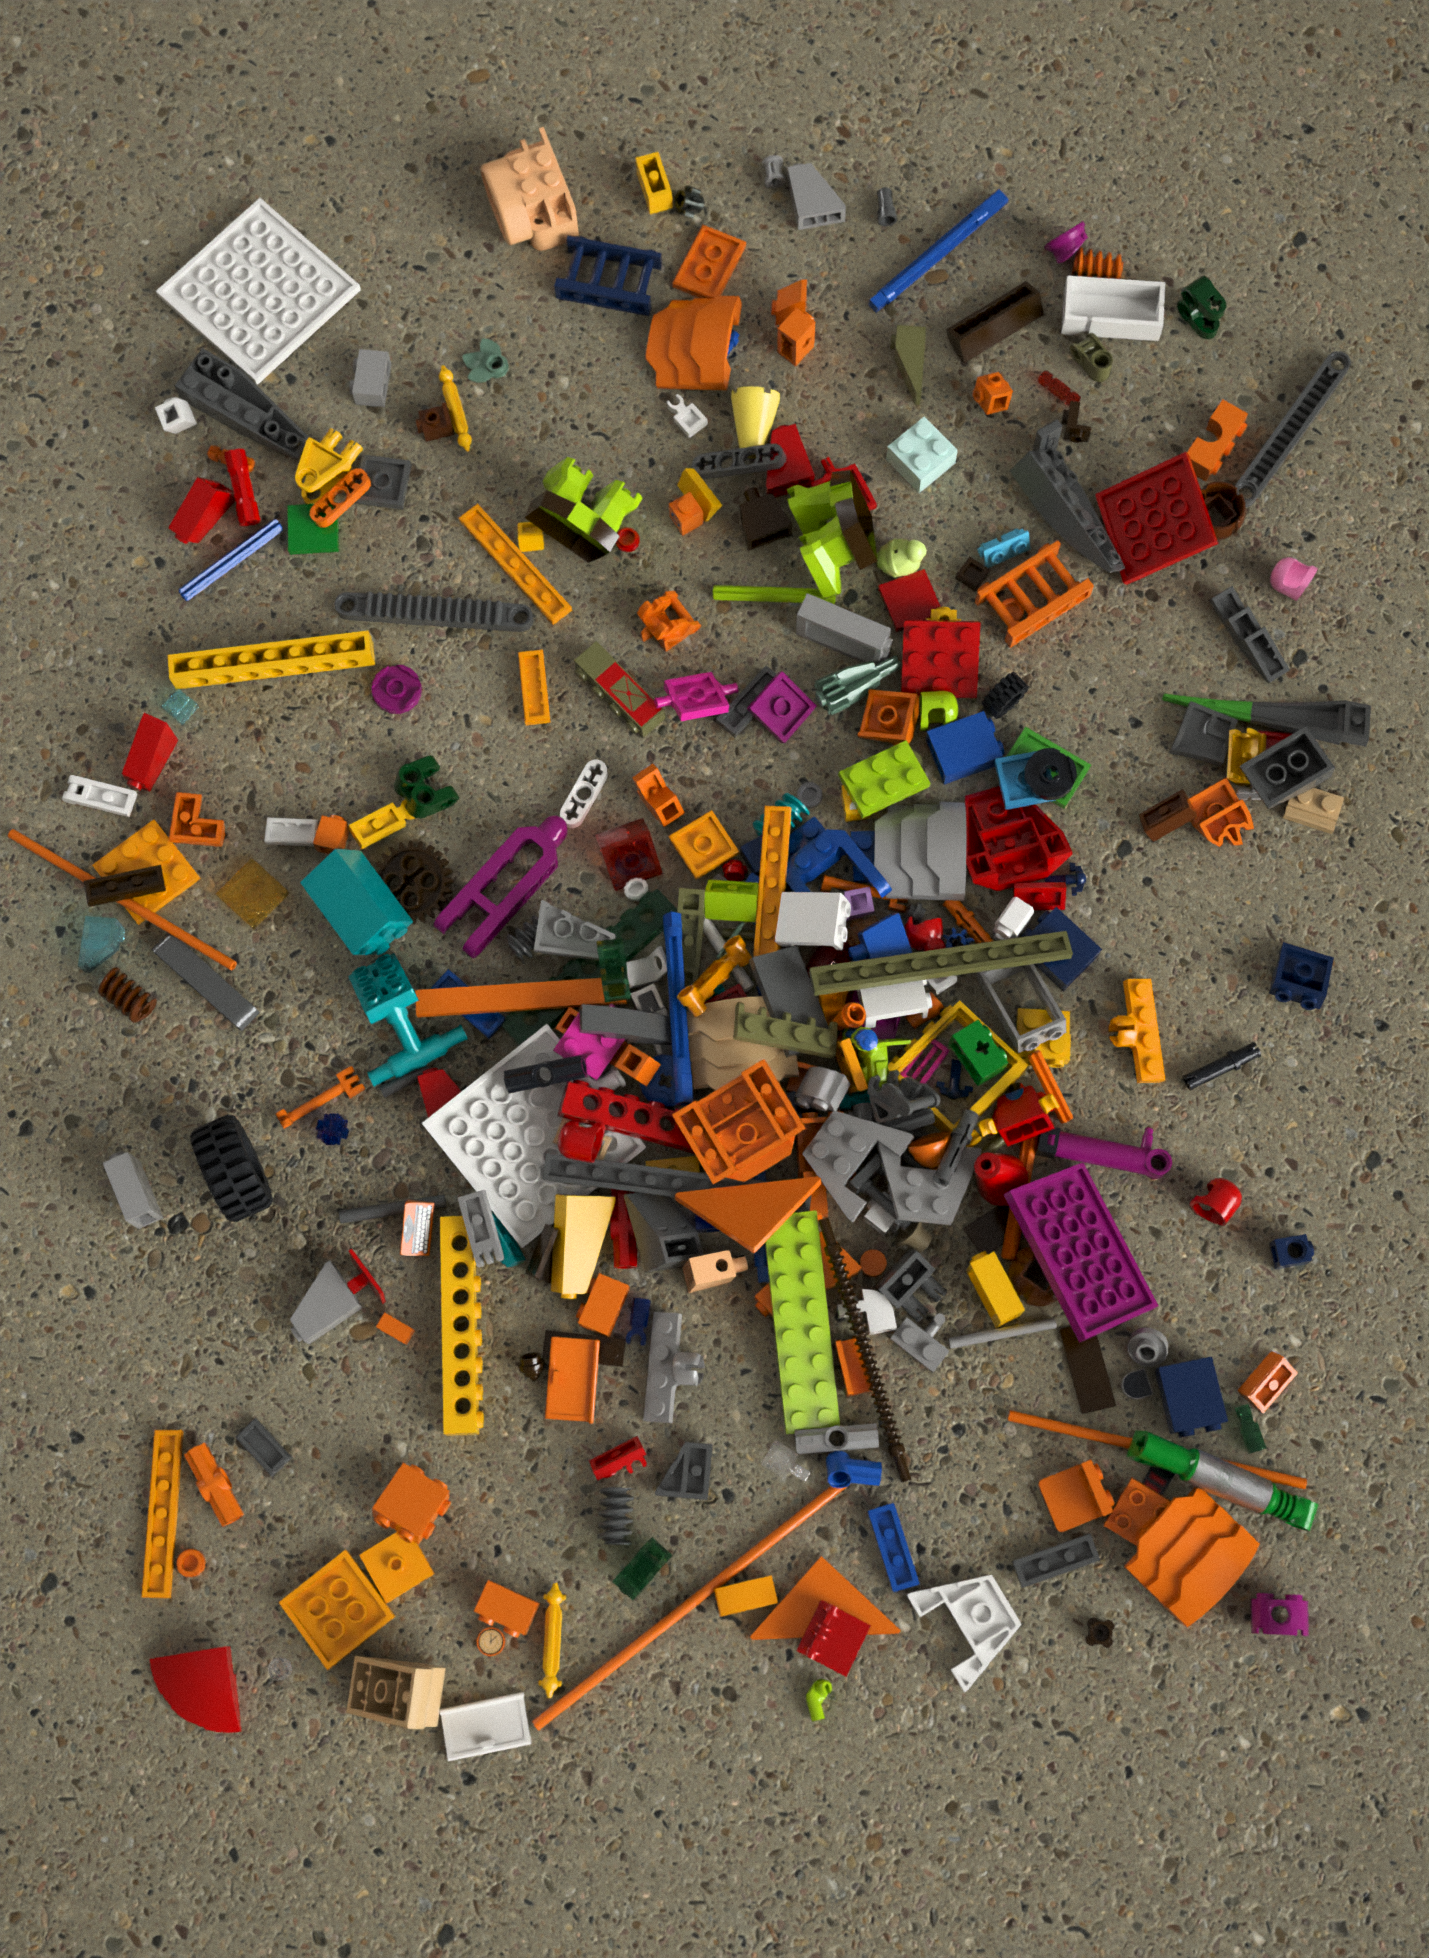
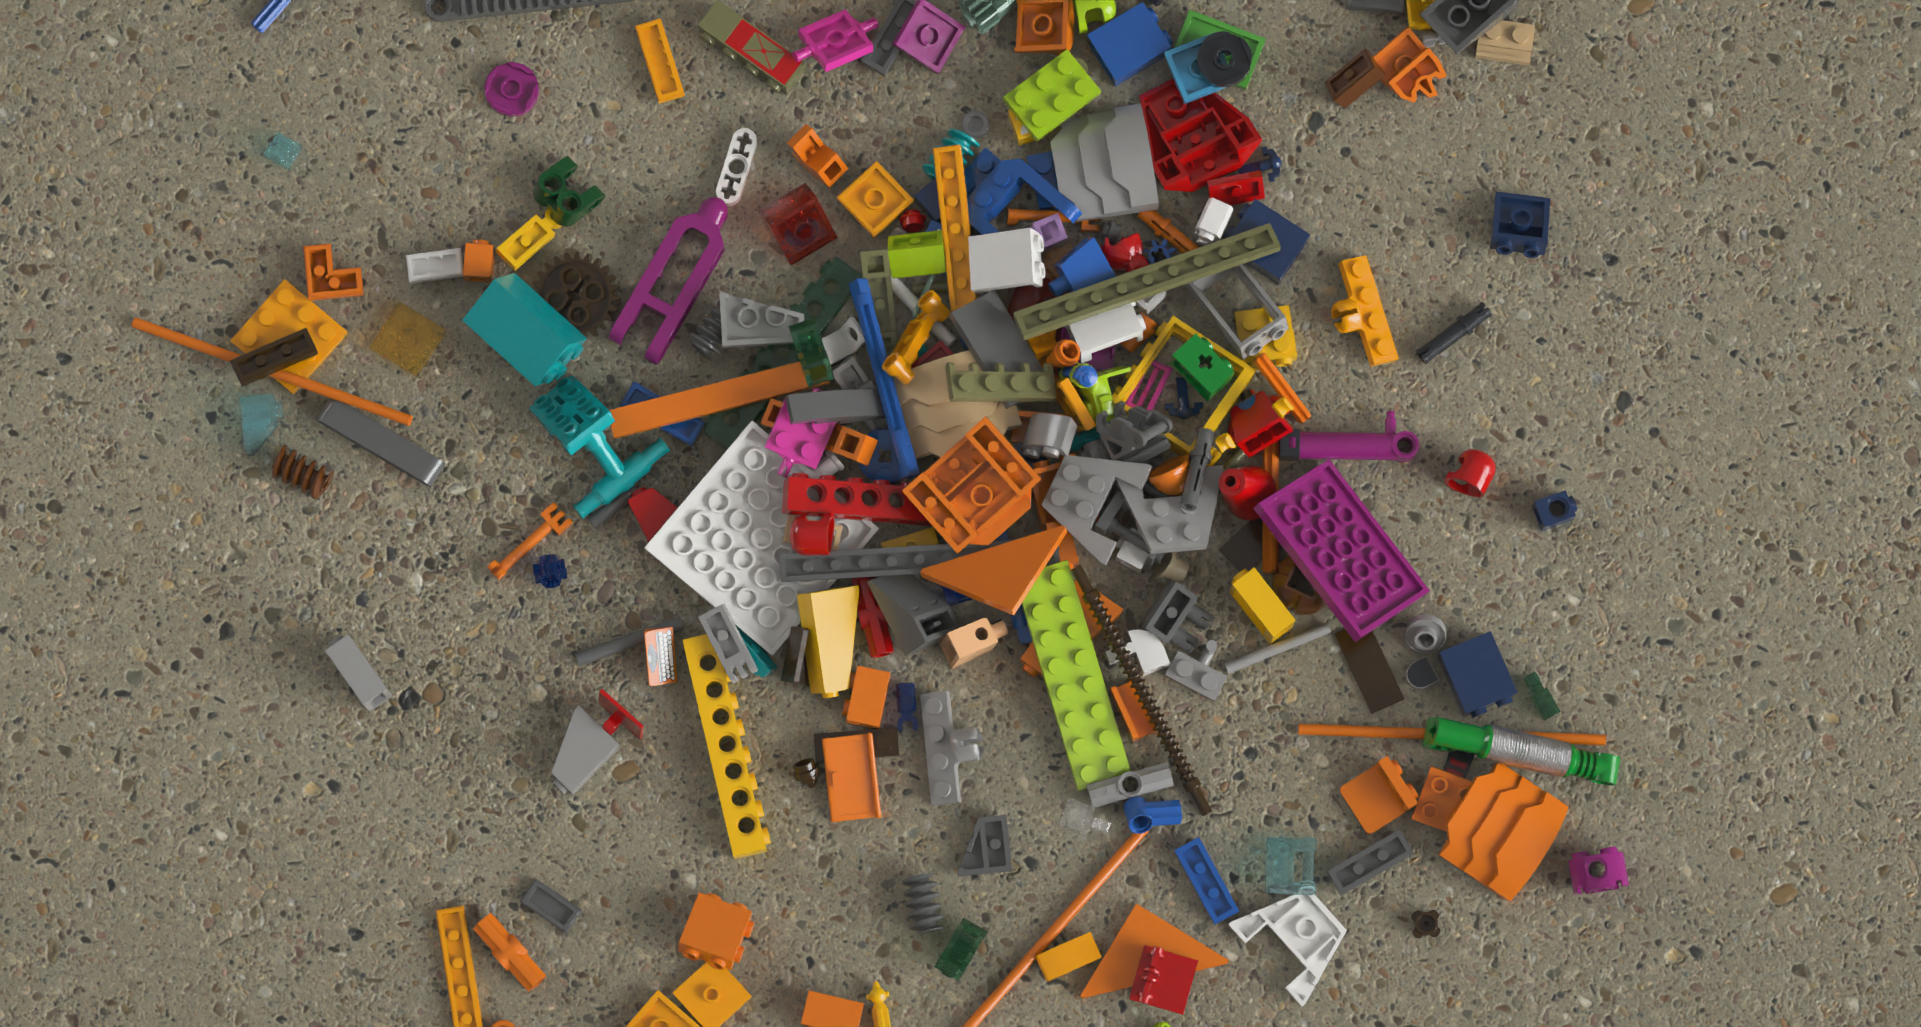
camera: 15 degrees left, 5 degrees up
(100, 796) = (220, 264): white plate -> none
(148, 753) = (264, 210): red slope -> none
(231, 1168) = (459, 630): black tyre -> none
(271, 659) = (372, 83): yellow brick -> none
(395, 1328) = (659, 762): orange piece -> none
(529, 1076) = (746, 480): black piece -> none
(614, 1459) = (909, 850): red plate -> none
(635, 889) = (813, 259): white piece -> none
(873, 1263) = (1133, 602): orange tile -> none
(968, 1547) = (1280, 866): none -> clear light blue plate
(1267, 1381) = (1552, 645): orange slope -> none

